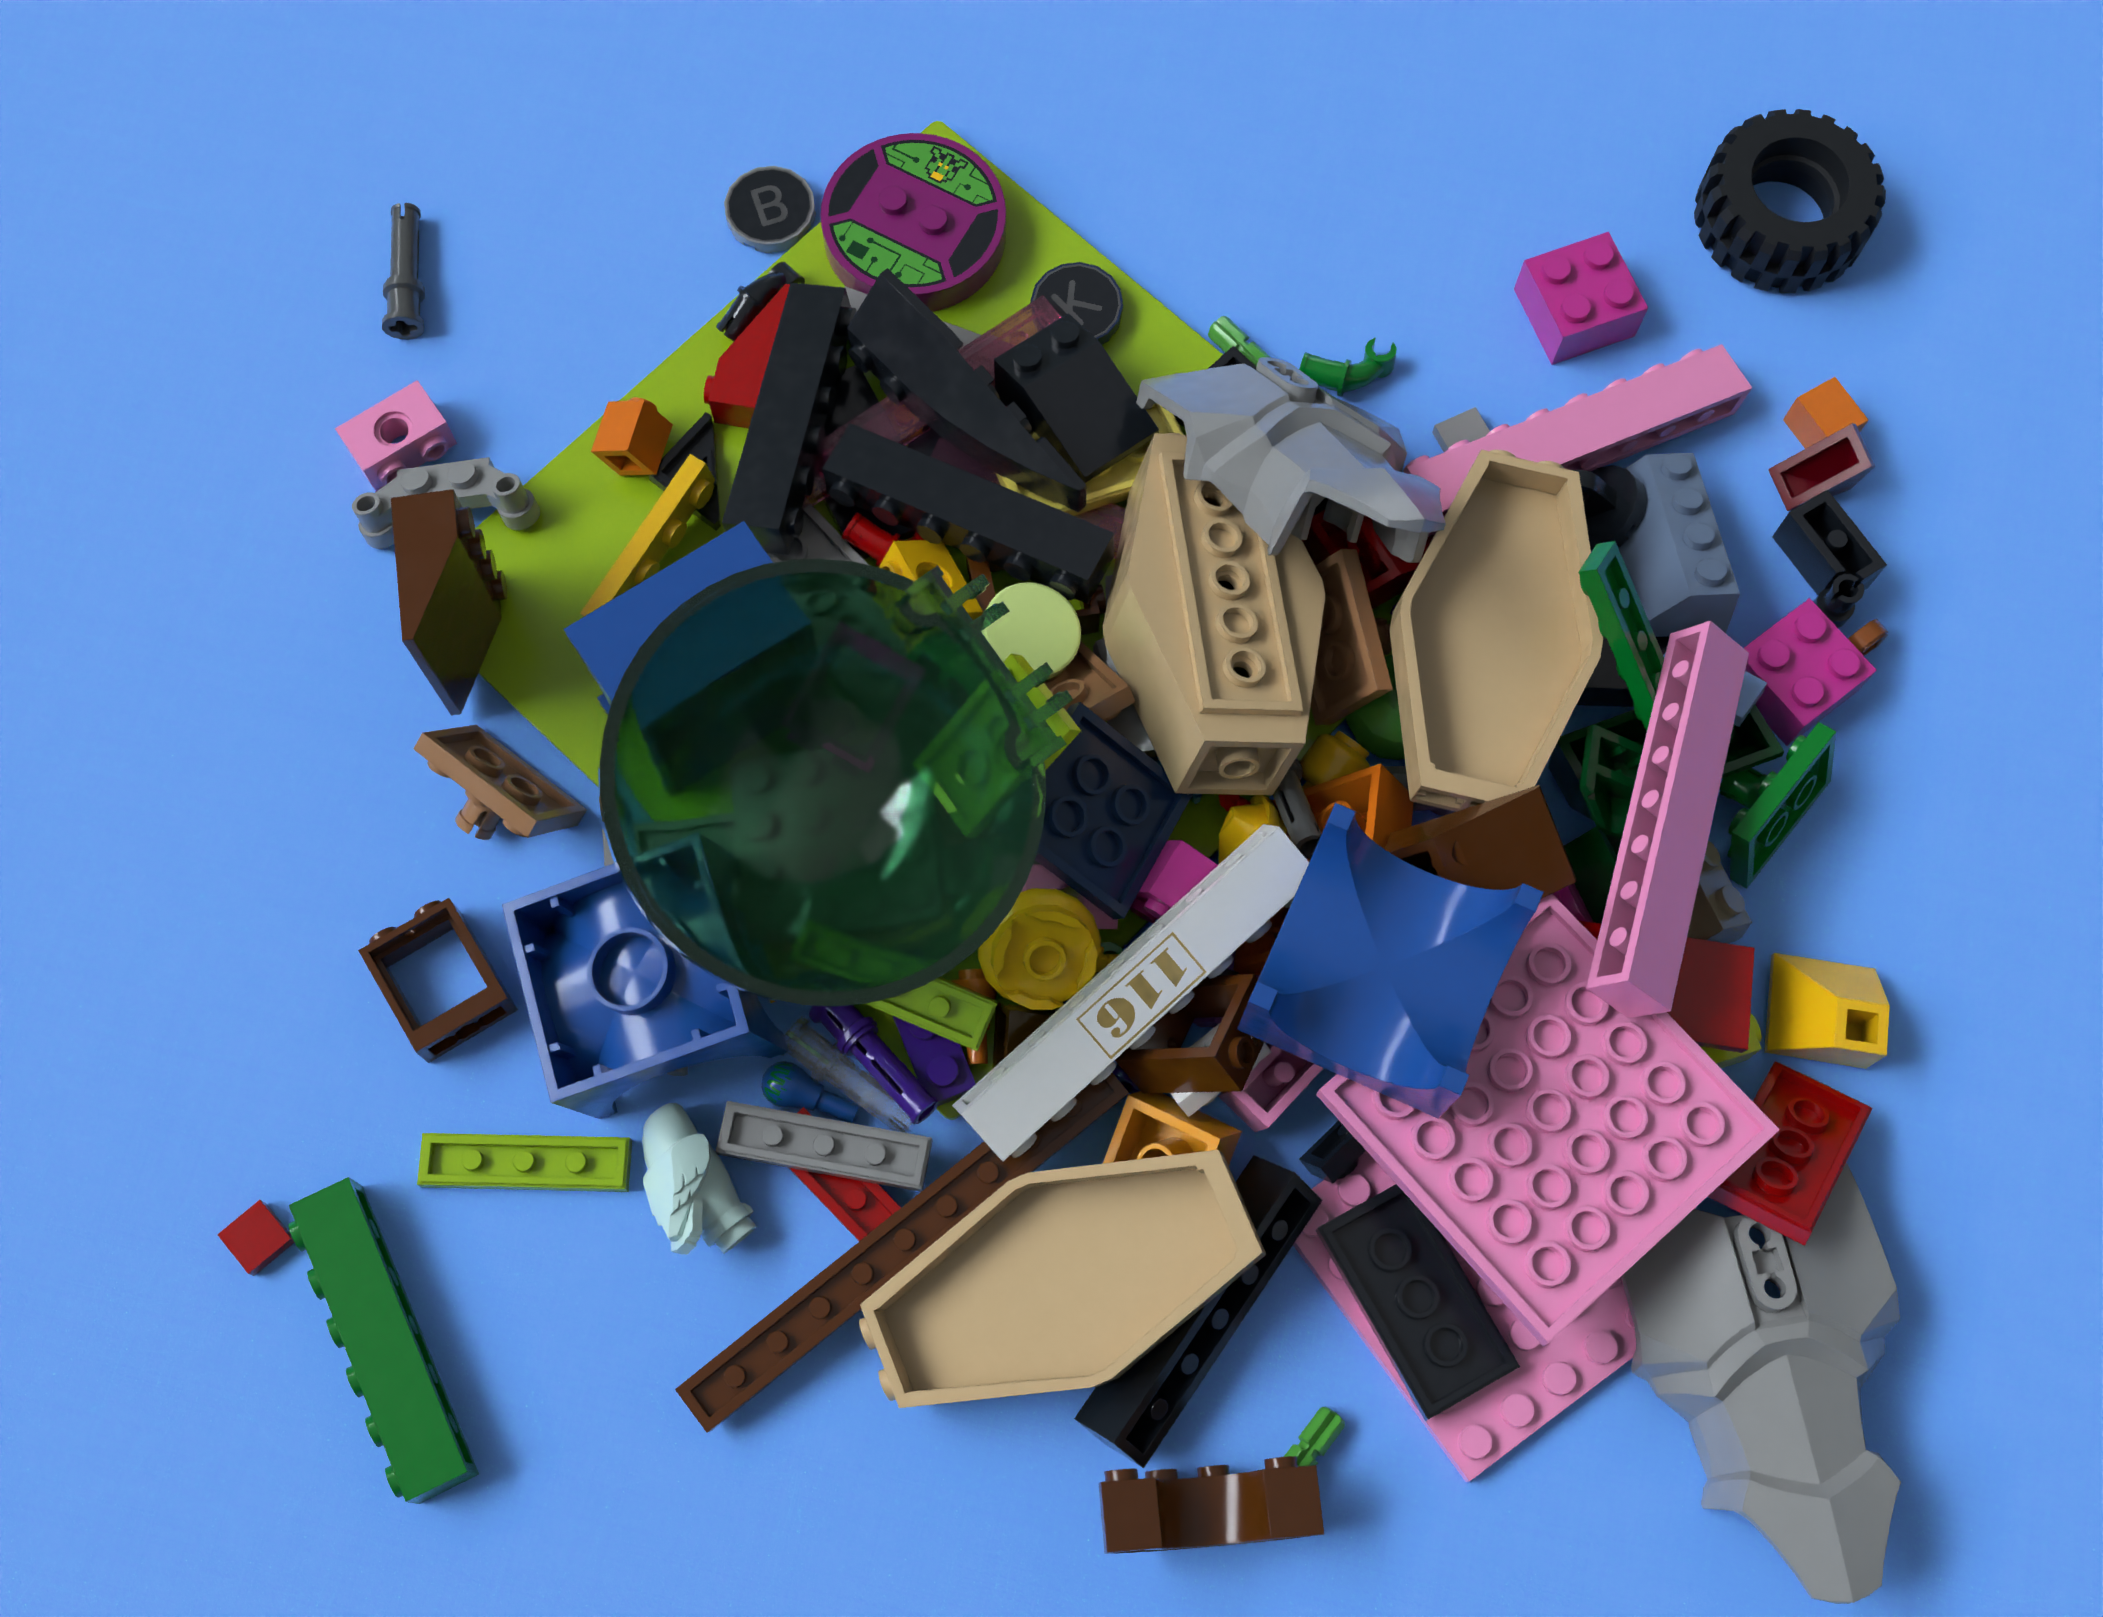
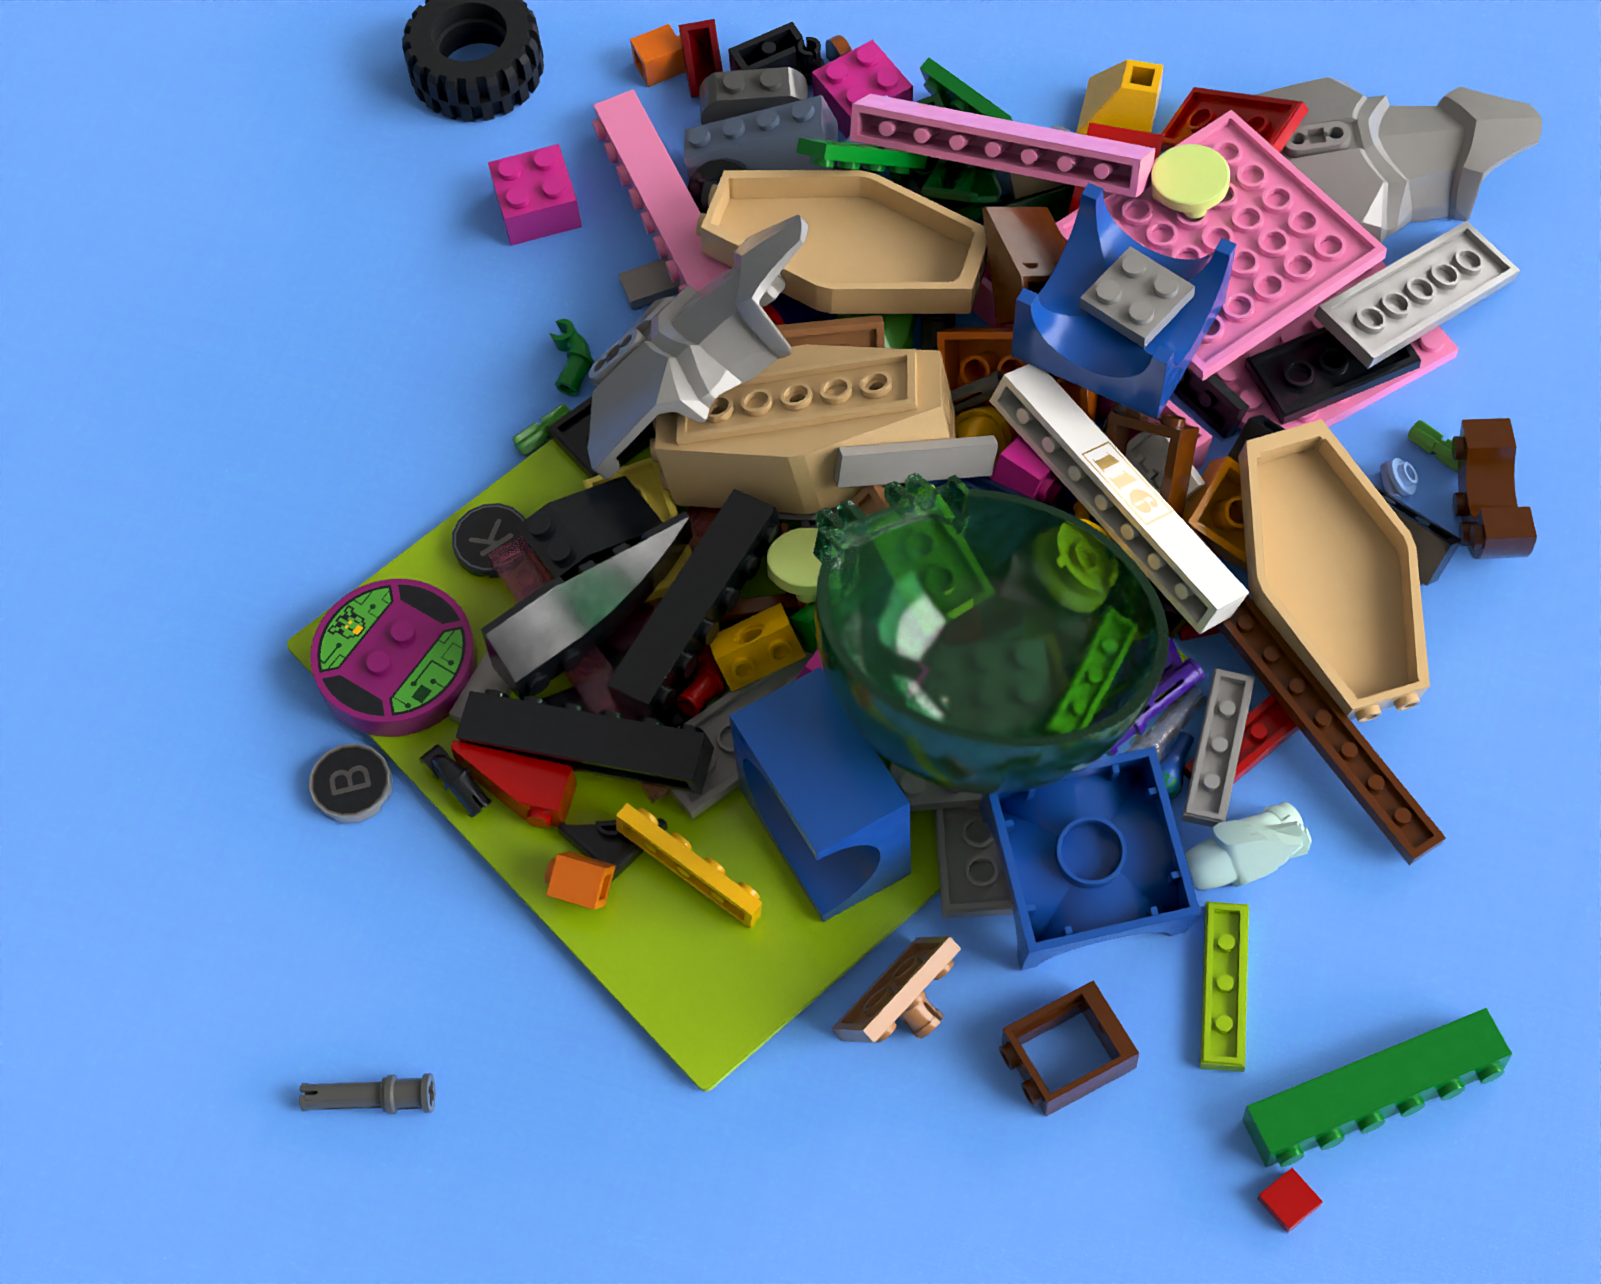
camera: 80 degrees left, 10 degrees down
(401, 414) = (552, 1118): bright pink brick -> none
(445, 591) = (745, 999): slope -> none
(474, 482) = (608, 1045): light grey plate -> none
(1156, 733) = (930, 458): none -> light grey tile
(1249, 1391) = (1398, 478): none -> light blue plate
(1392, 979) = (1137, 296): none -> light grey plate
(1537, 1417) = (1416, 294): none -> plate
(1636, 1066) = (1190, 179): none -> yellowish green tile
(1758, 535) = (748, 91): none -> dark grey brick

